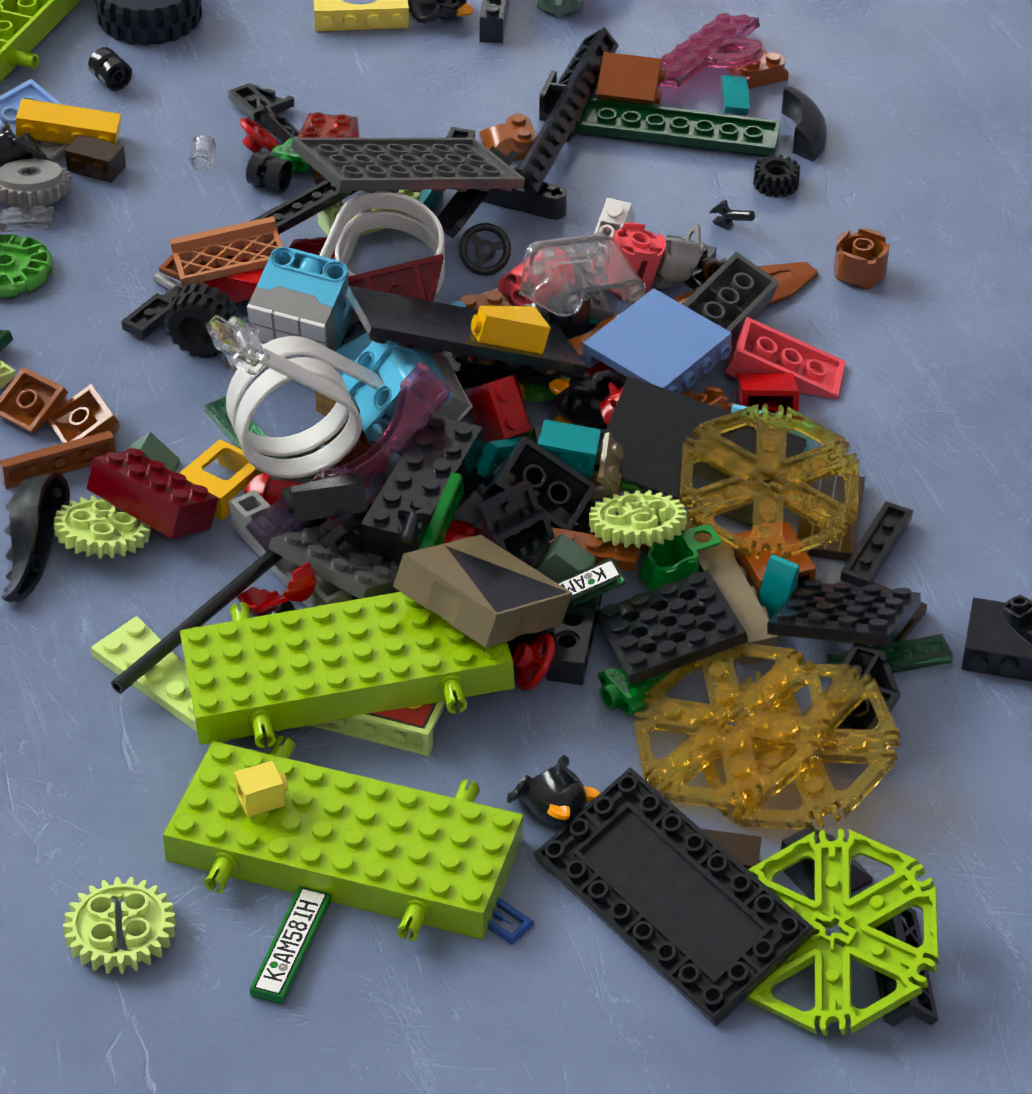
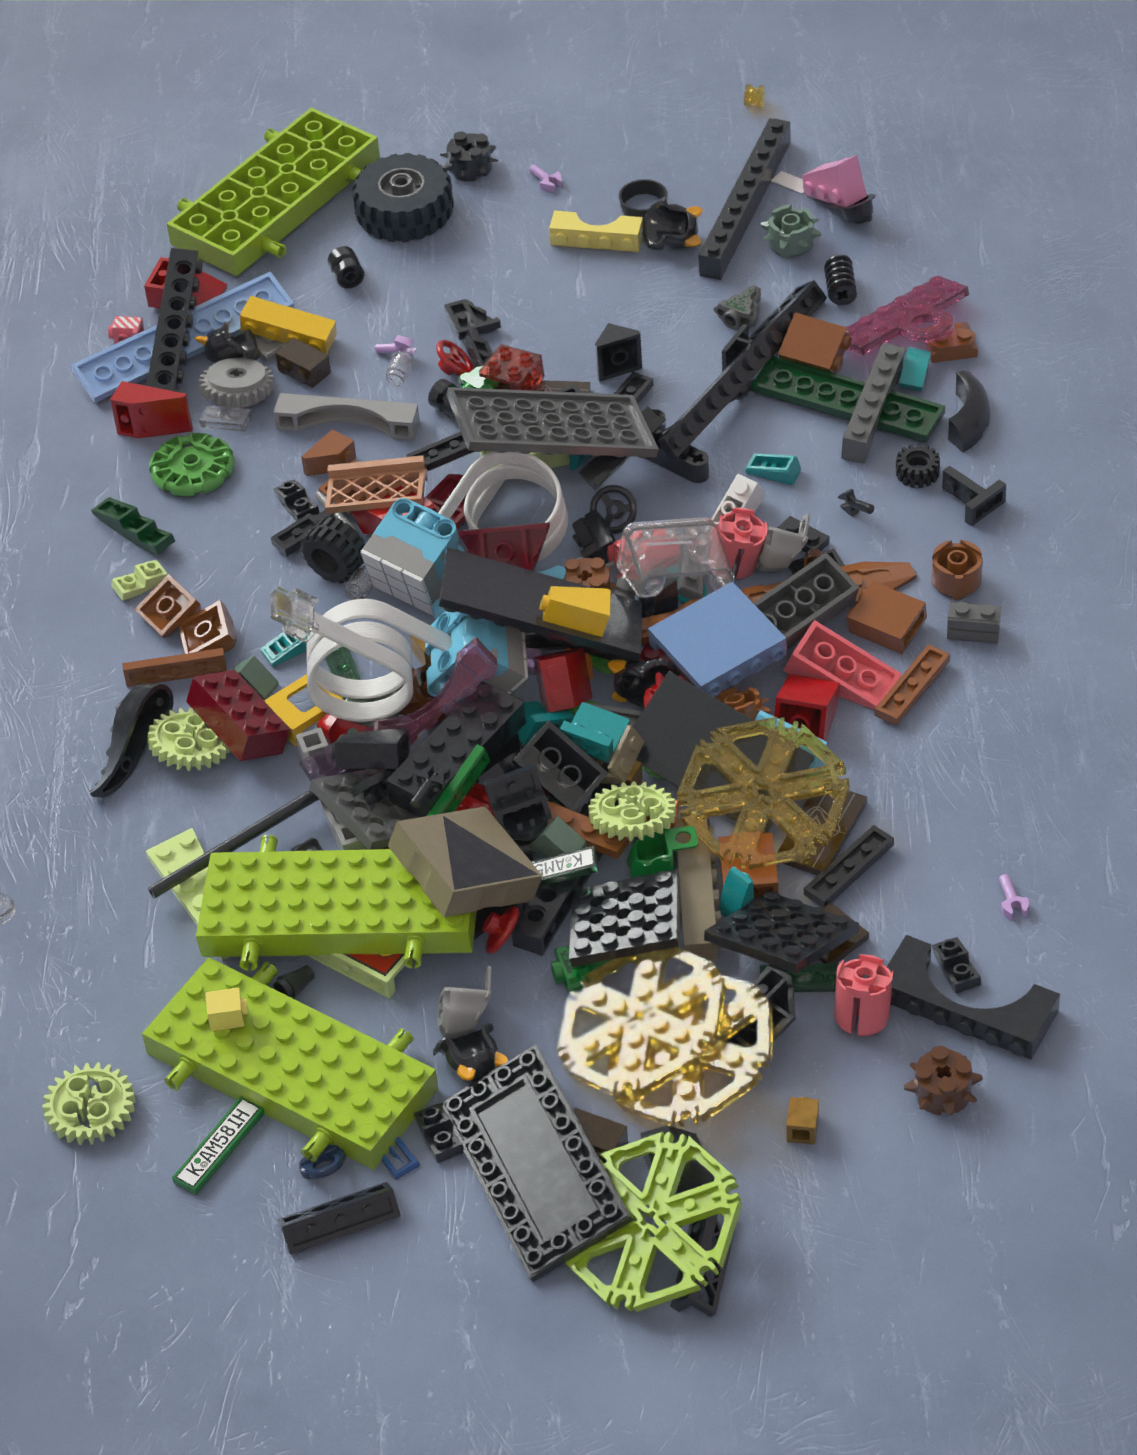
camera: 20 degrees right, 5 degrees up
(115, 201) = (300, 412): none -> light grey arch
(132, 284) = (295, 499): none -> black slope
(153, 237) = (330, 450): none -> dark orange slope
(189, 406) = (277, 643): none -> teal slope
(196, 127) = (401, 344): none -> lavender bar
(298, 590) = (296, 831): red piece -> none
(317, 751) = (294, 981): none -> black cone
(430, 927) = (331, 1152): none -> dark blue piece
(433, 108) = (618, 352): none -> black slope
(466, 996) = (339, 1217): none -> black fence
(474, 274) = (593, 535): none -> black brick
(514, 135) = (681, 391): dark orange slope -> none
(524, 746) = (462, 1008): none -> light grey piece
(535, 62) = (740, 308): none -> dark grey rock
(542, 885) = (438, 1132): none -> black slope
(627, 27) = (840, 279): none -> black piece
(640, 193) = (782, 469): none -> teal slope
(709, 126) = (864, 420): none -> dark grey arch
(810, 310) = (886, 617): none -> dark orange brick
(838, 191) = (977, 500): none -> black bracket
(862, 368) = (912, 684): none -> dark orange plate
(899, 303) = (973, 622): none -> dark grey brick
(944, 800) = (802, 1120): none -> pearl gold brick
(958, 660) = (863, 995): none -> coral cylinder

